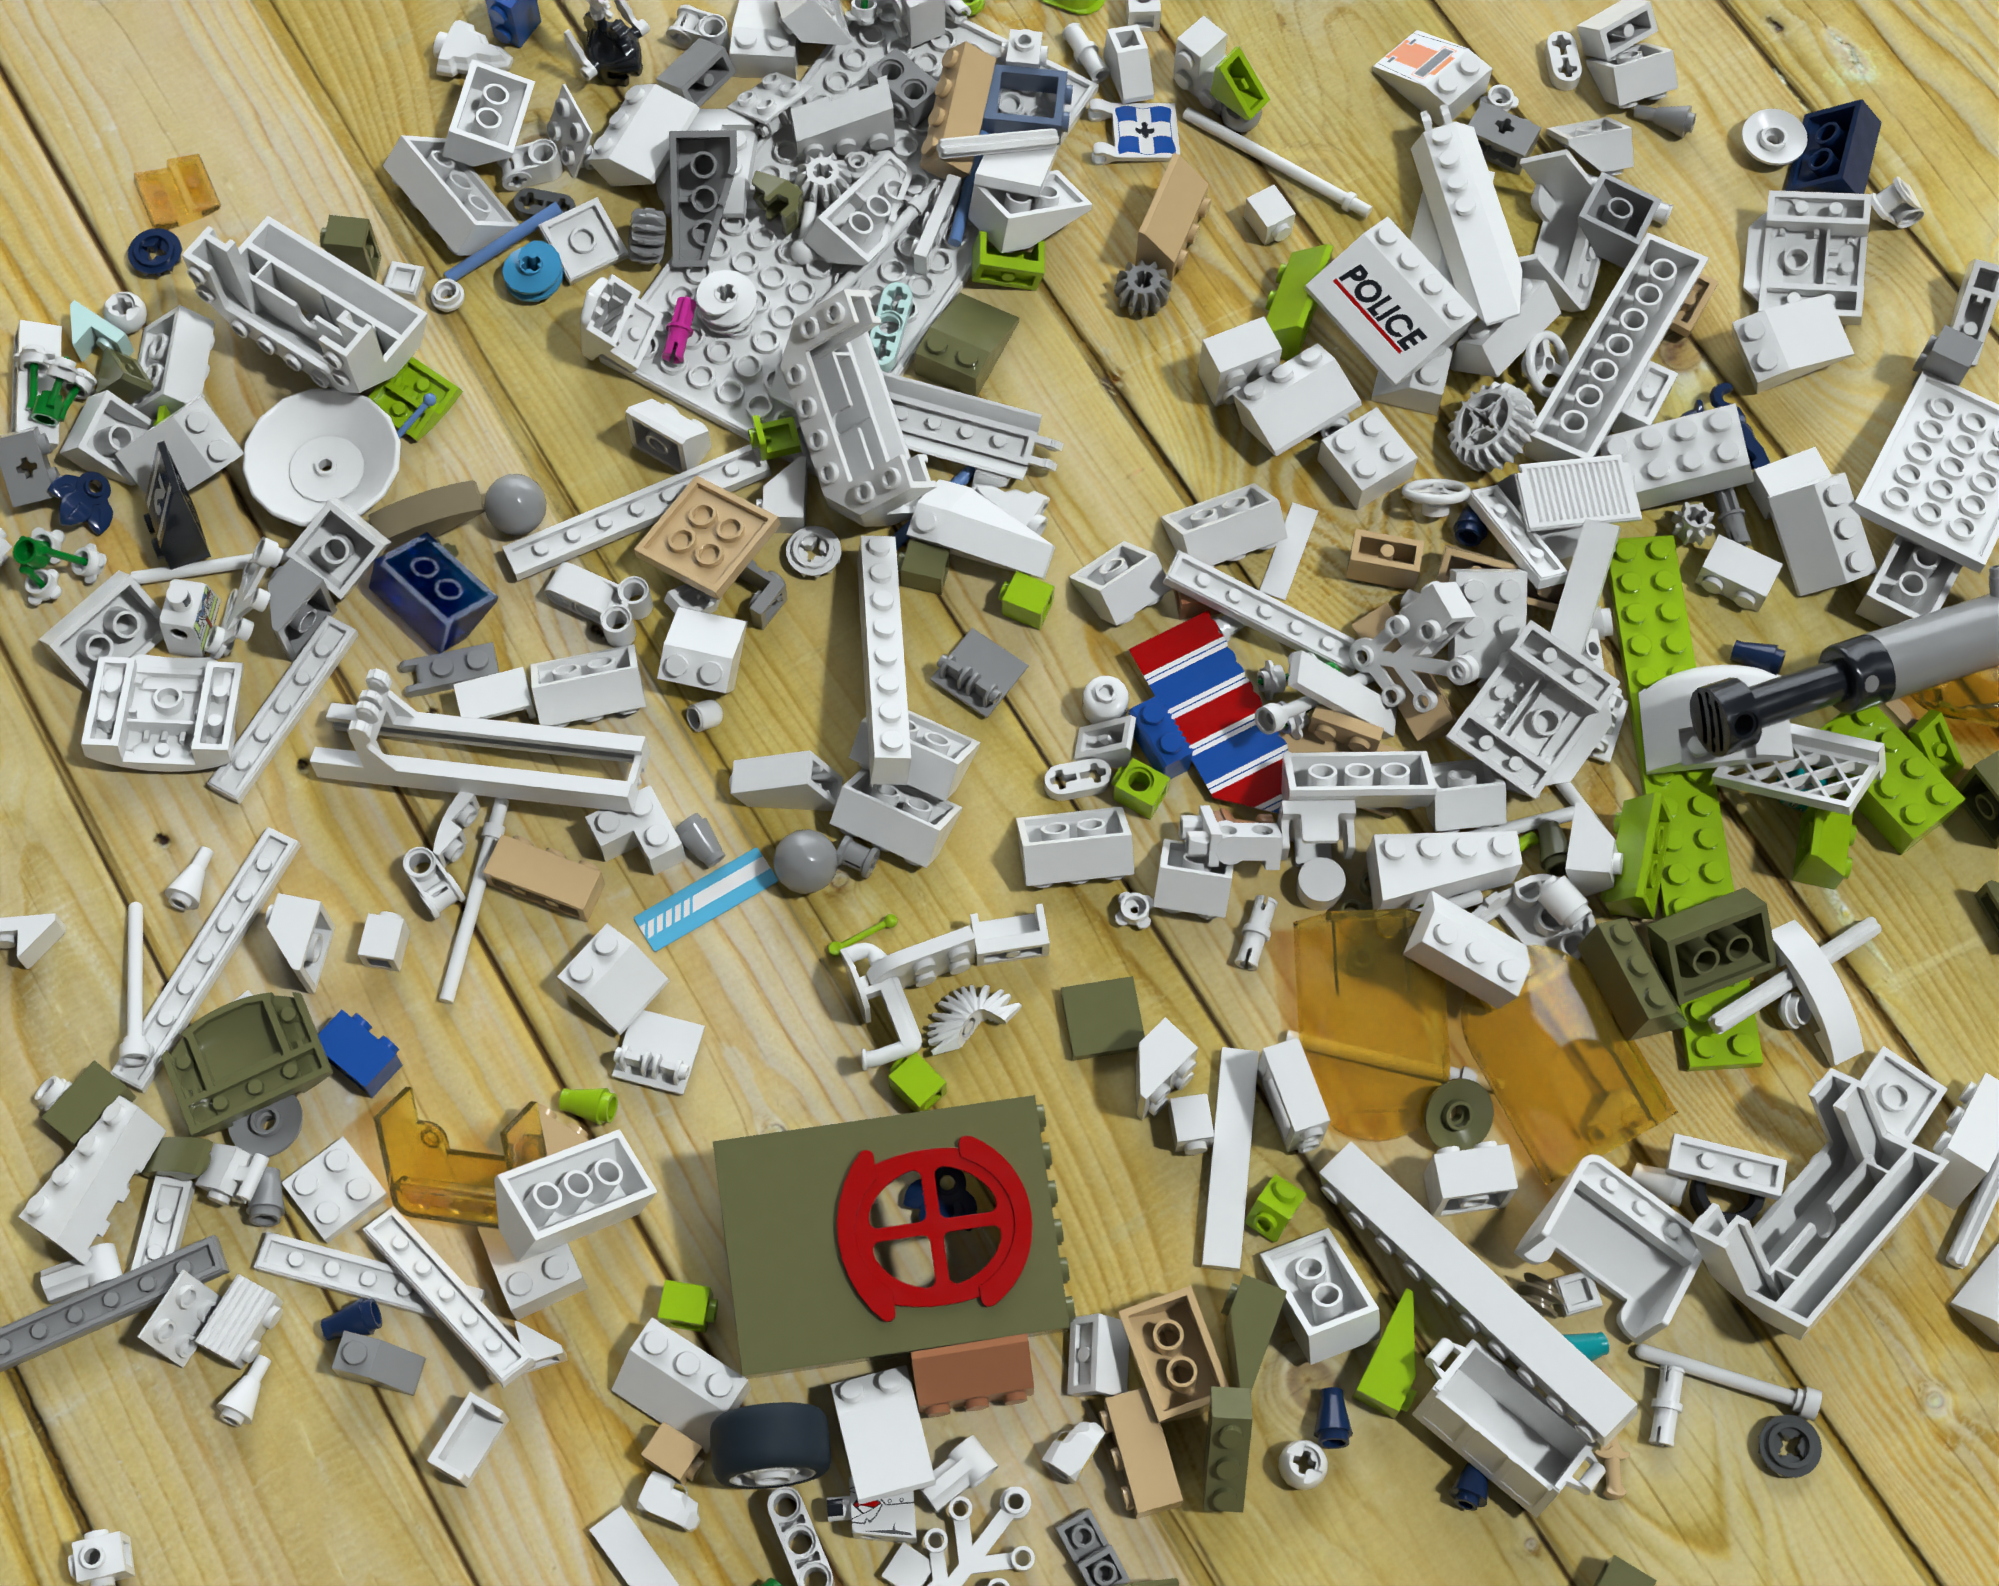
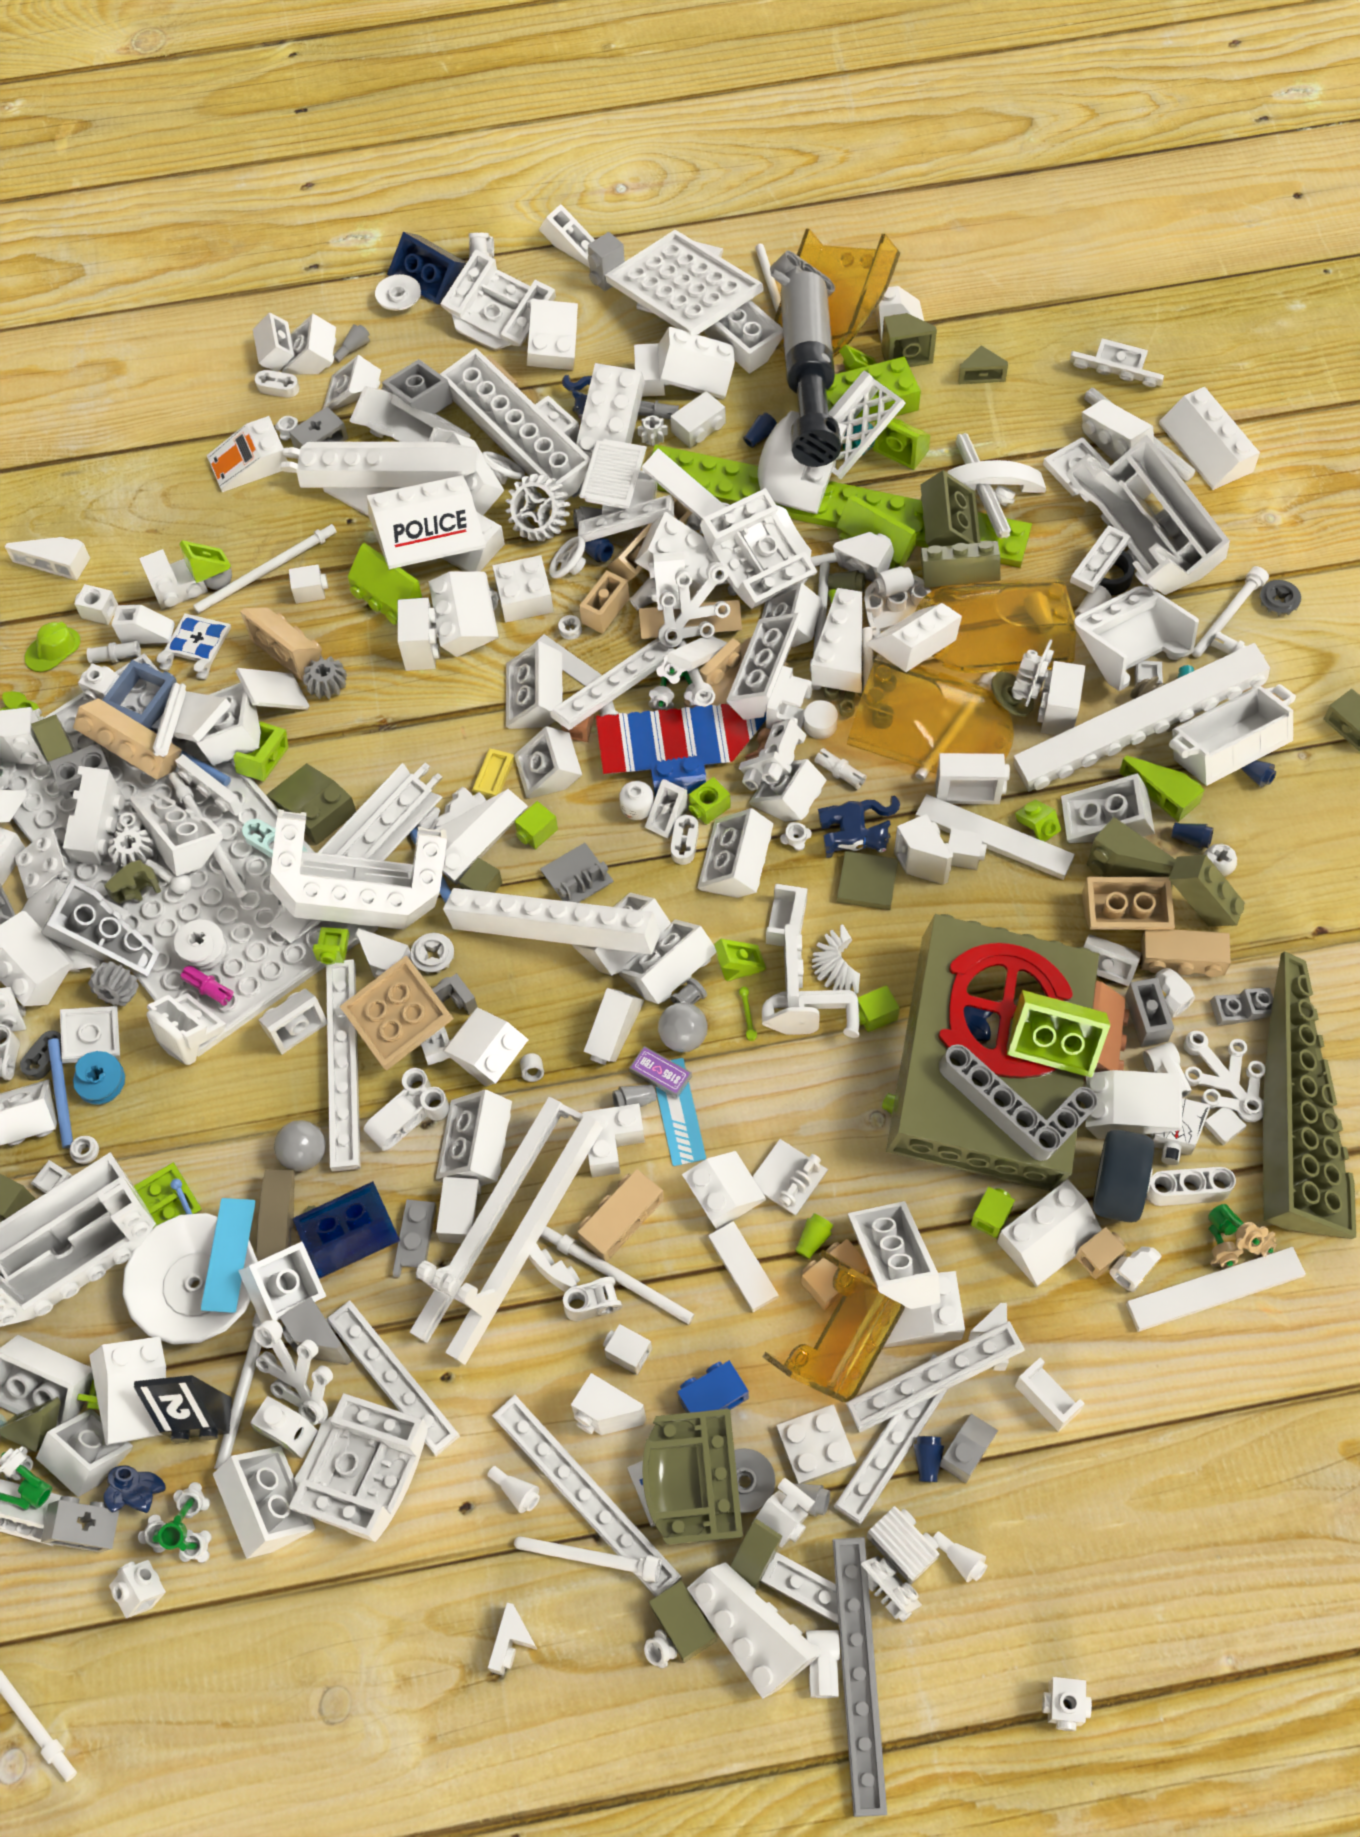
camera: 65 degrees left, 5 degrees down
(358, 481) = (228, 1255): none -> medium azure sticker
(528, 1037) = (743, 1266): none -> white tile
(746, 860) = (660, 1072): none -> tile
(792, 1272) = (1015, 1106): none -> light grey beam
(917, 1296) = (1058, 1033): none -> lime slope
(924, 38) = (52, 738): none -> olive slope
(928, 896) = (738, 959): none -> lime slope
(1028, 1425) = (1149, 1012): none -> light grey brick
(1085, 527) = (493, 773): none -> light yellow tile
(1095, 236) = (272, 689): none -> white piece
(1172, 972) = (852, 831): none -> dark blue animal
(1346, 541) = (570, 620): none -> white bush
(1487, 1123) = (1031, 674): none -> white hinge

